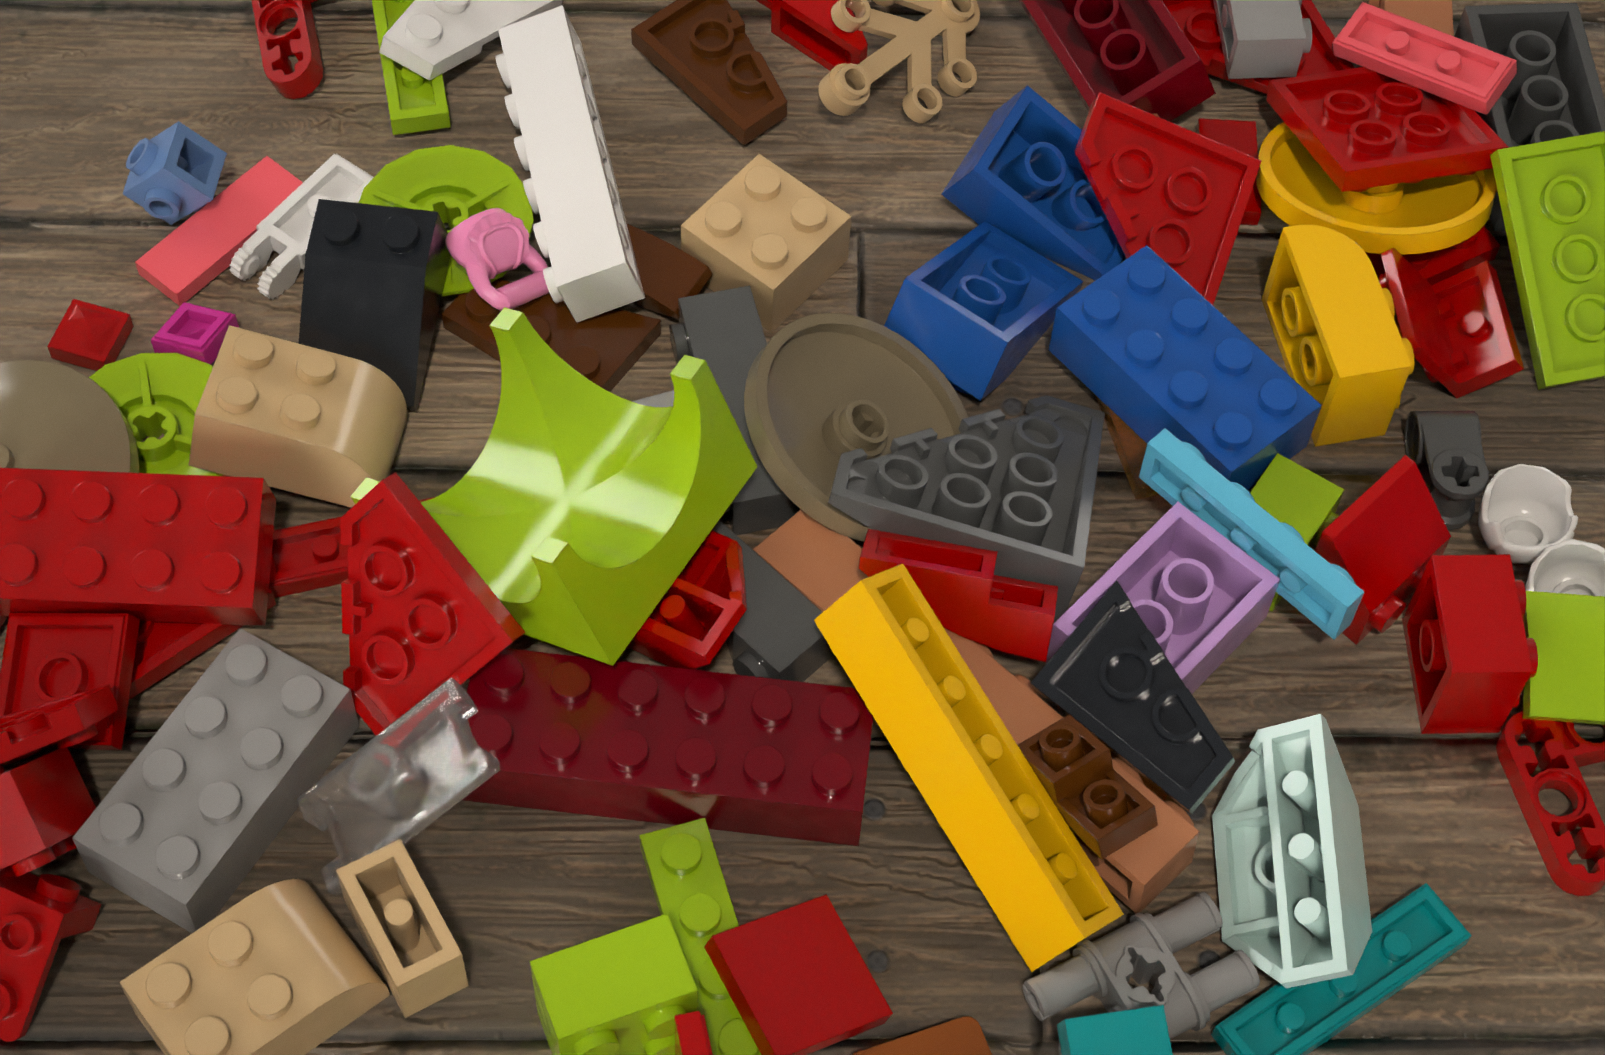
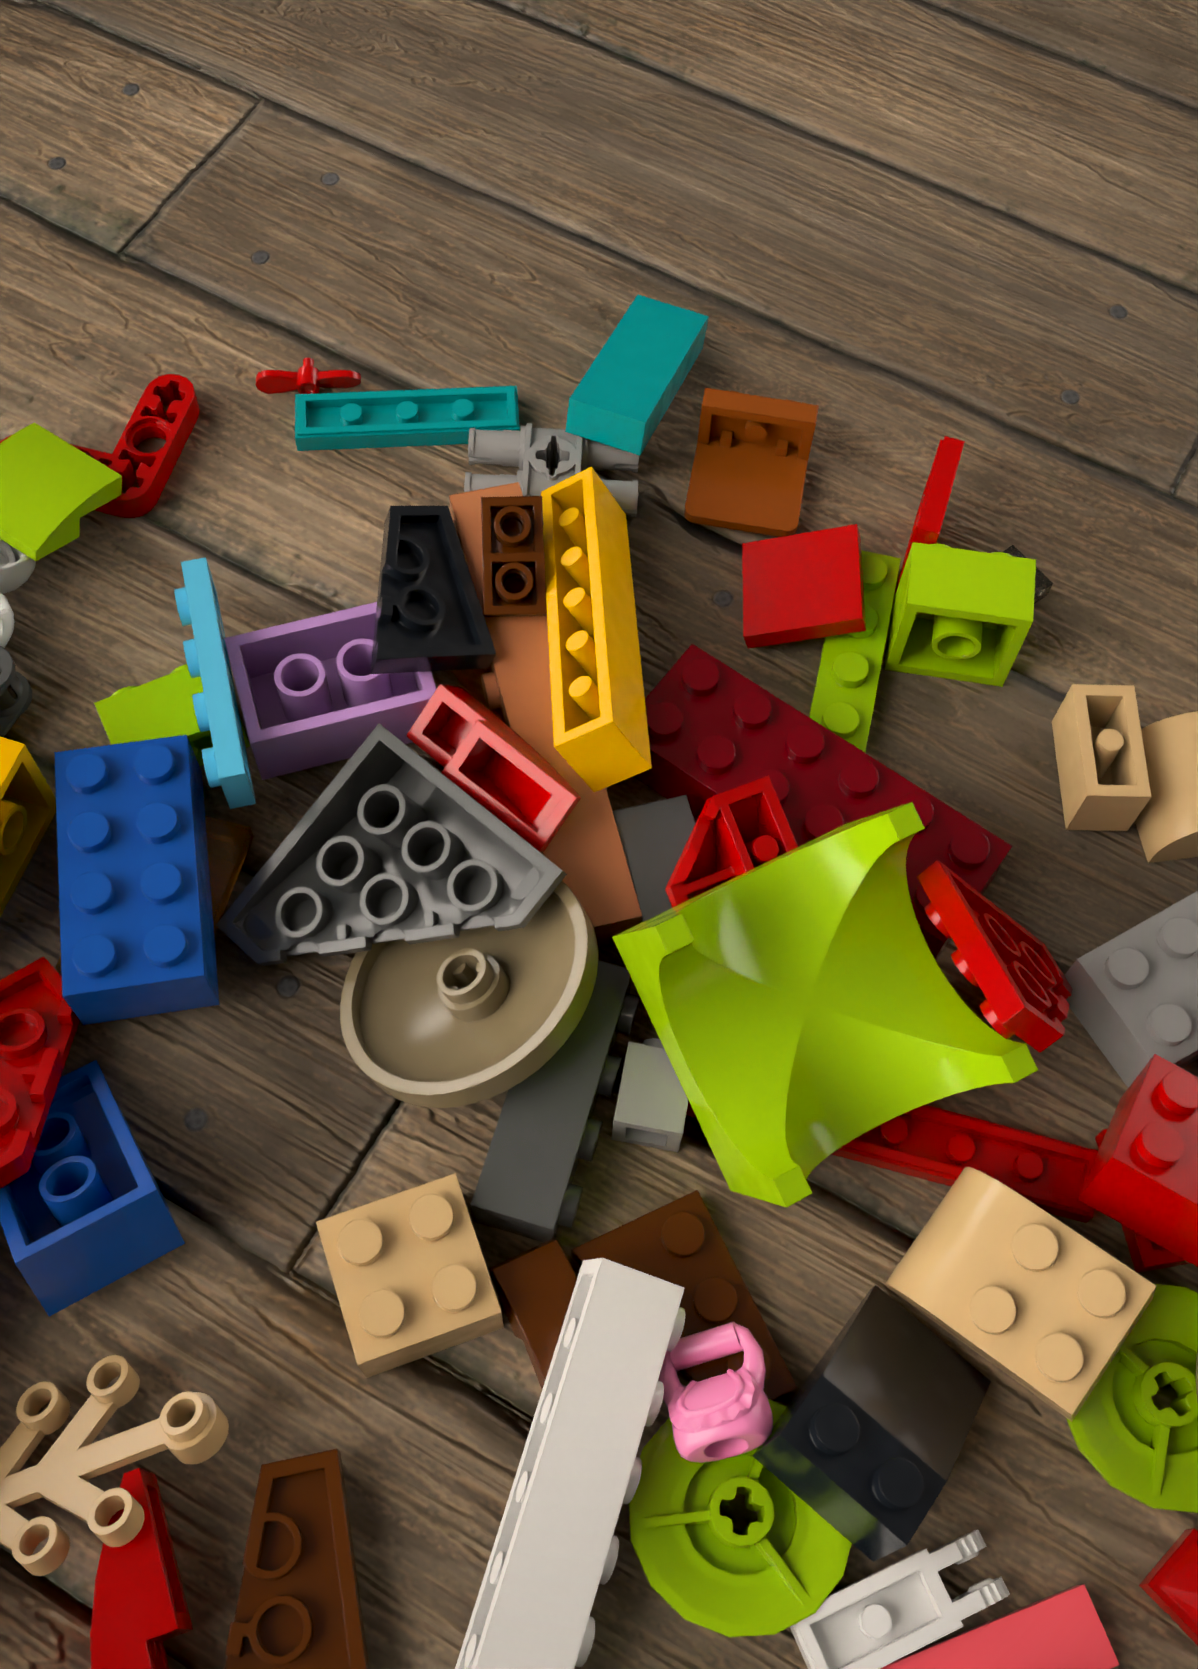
camera: 150 degrees left, 5 degrees up
(194, 332) = (1079, 1512): dark pink tile -> none
(400, 779) = (1060, 852): clear piece -> none
(980, 307) = (244, 1081): blue slope -> none
(1293, 857) = (400, 455): light aqua wedge -> none
(1386, 545) = (111, 650): red slope -> none
(1468, 643) = (118, 536): red brick -> none
(1476, 971) = (306, 379): none -> red piece

